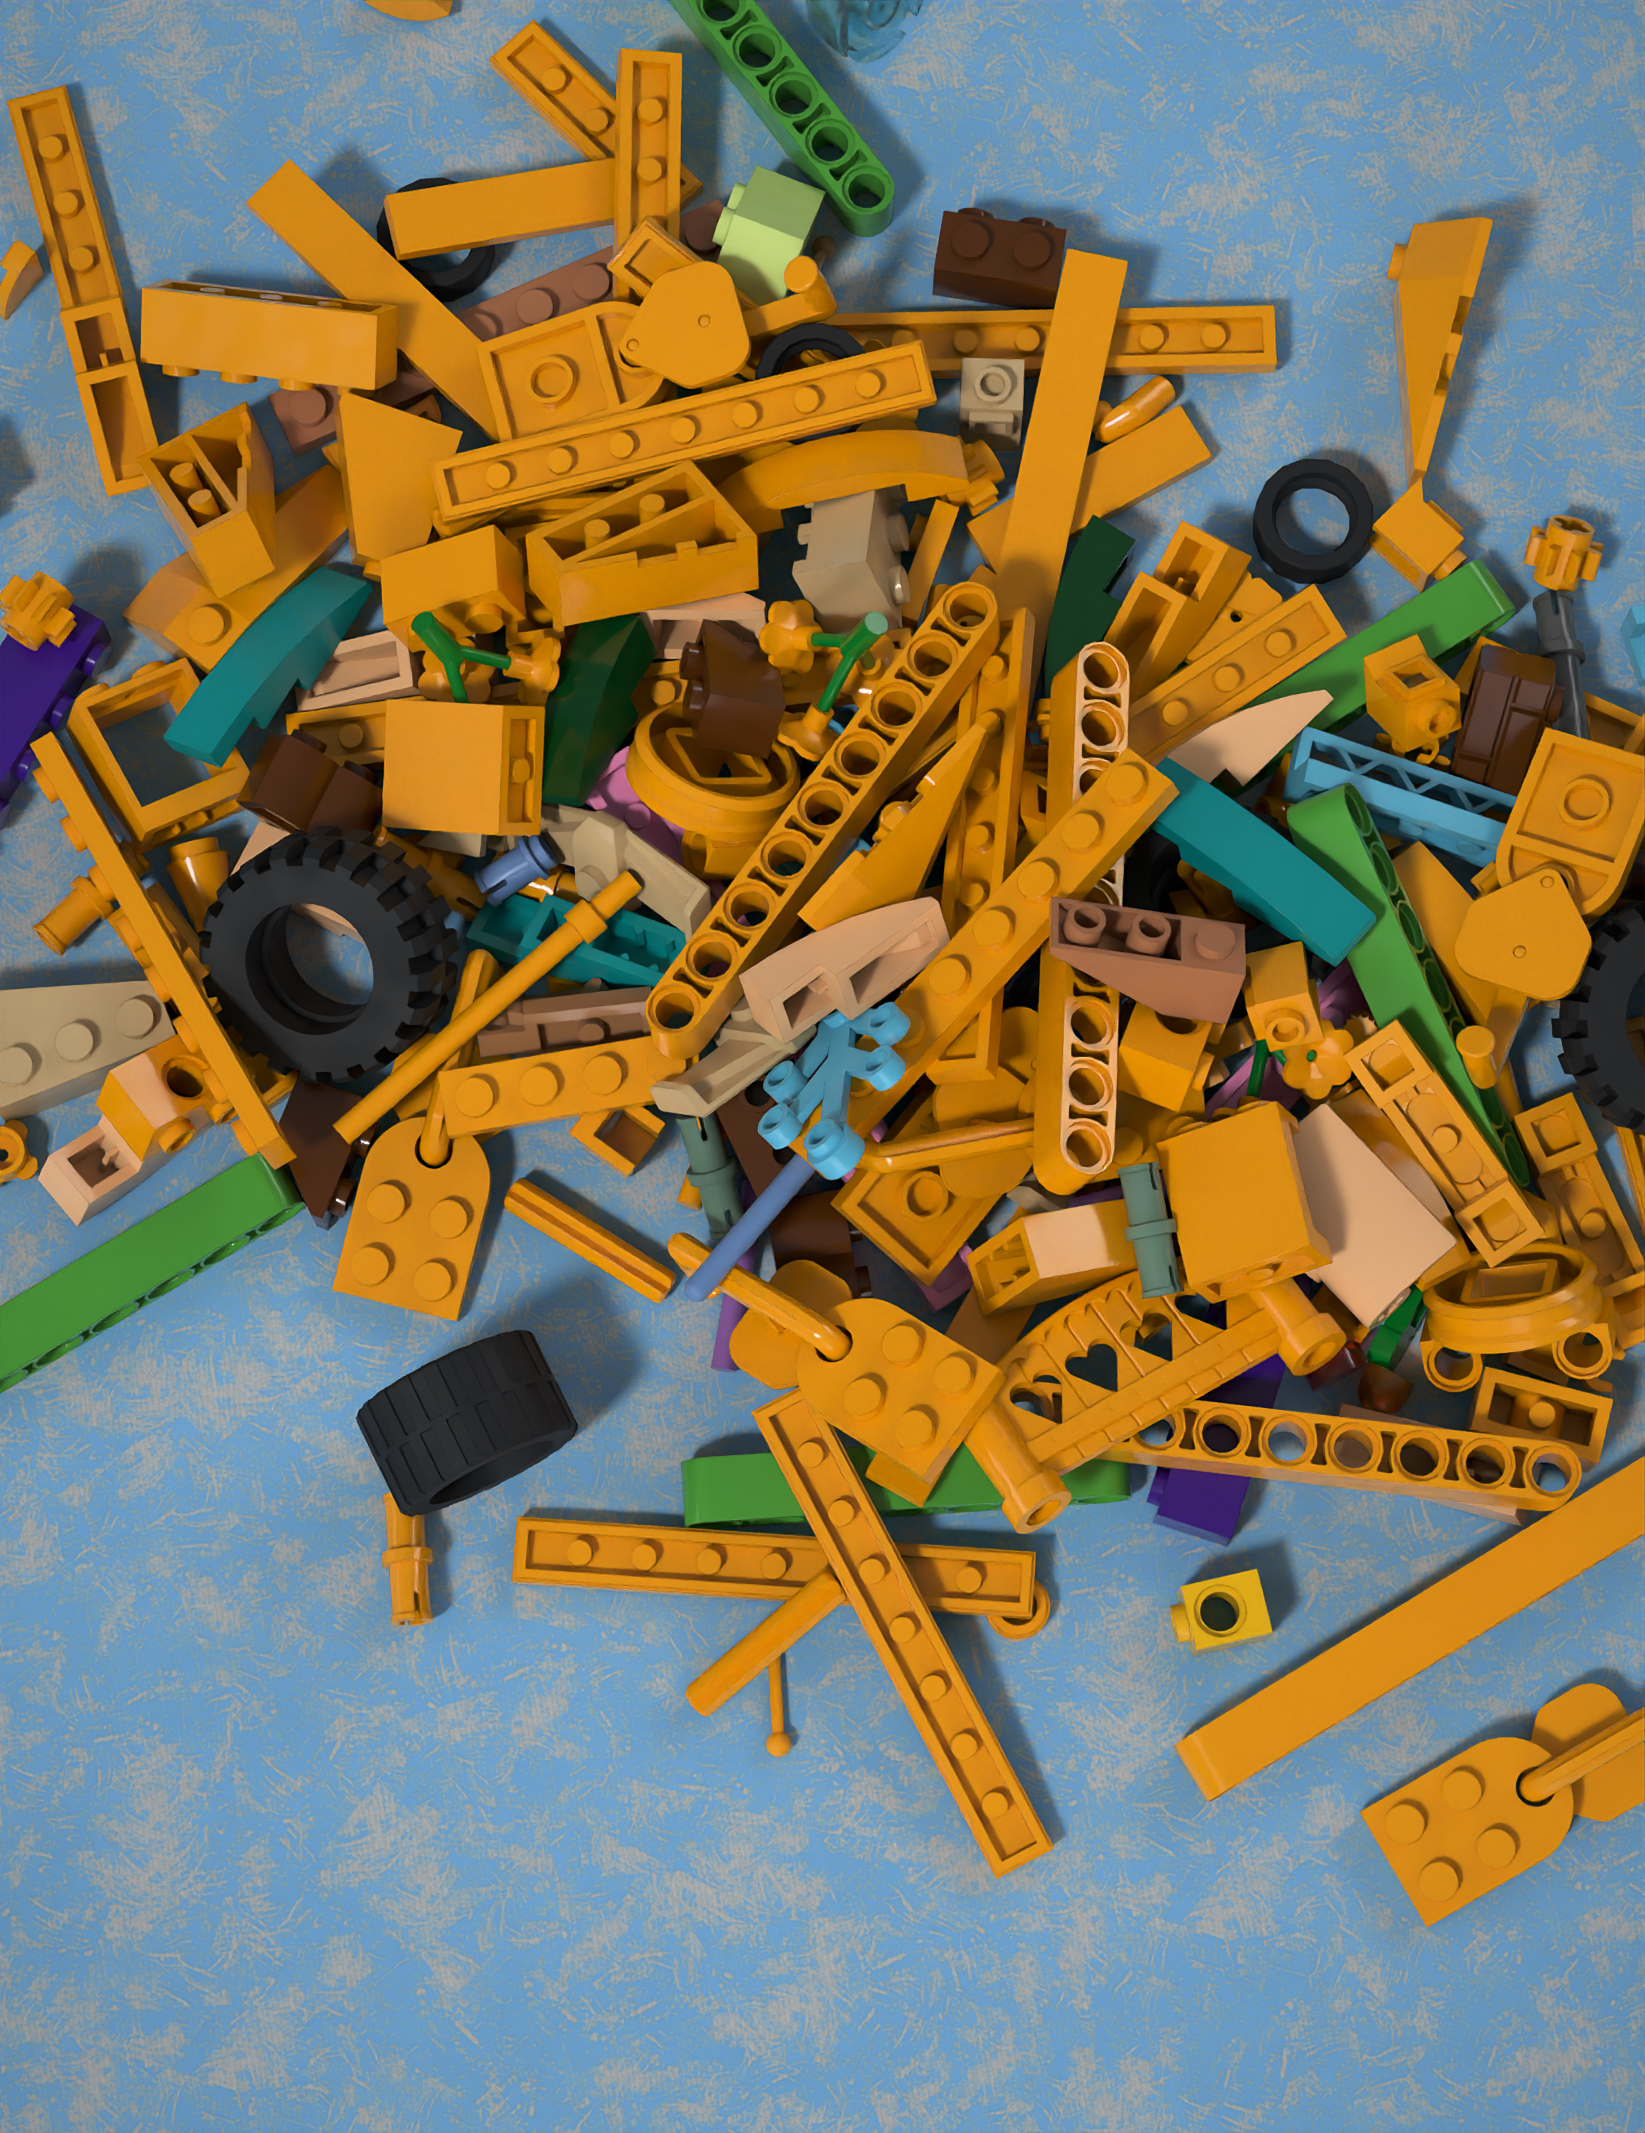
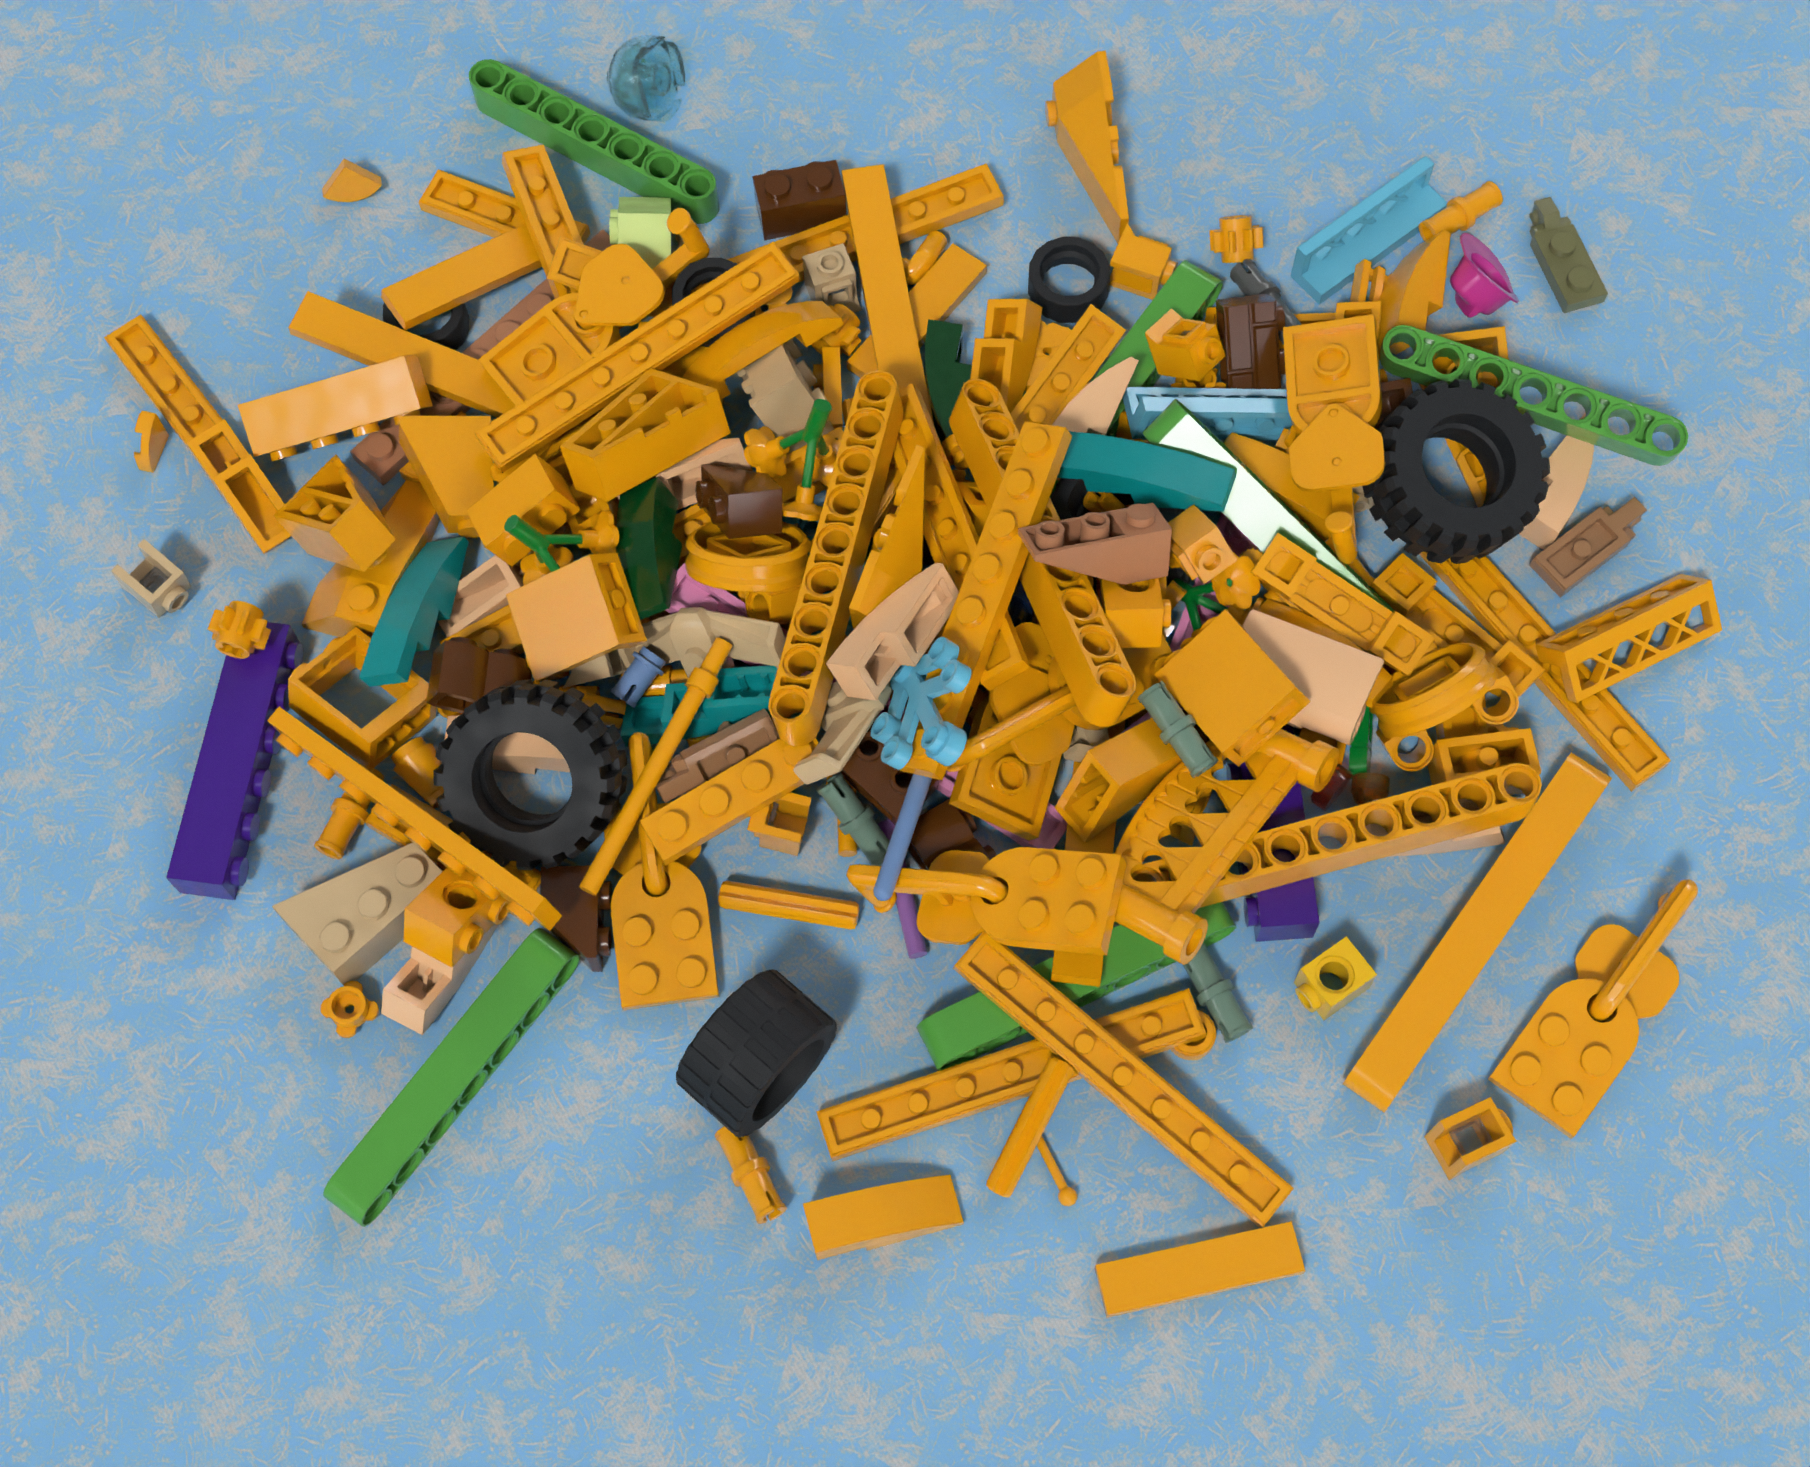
camera: 20 degrees left, 10 degrees down
(544, 1677) = (882, 1215): none -> light orange slope
(898, 1897) = (1199, 1269): none -> light orange tile
(1069, 1572) = (1217, 995): none -> sand green pin
(1299, 1877) = (1470, 1137): none -> light orange window

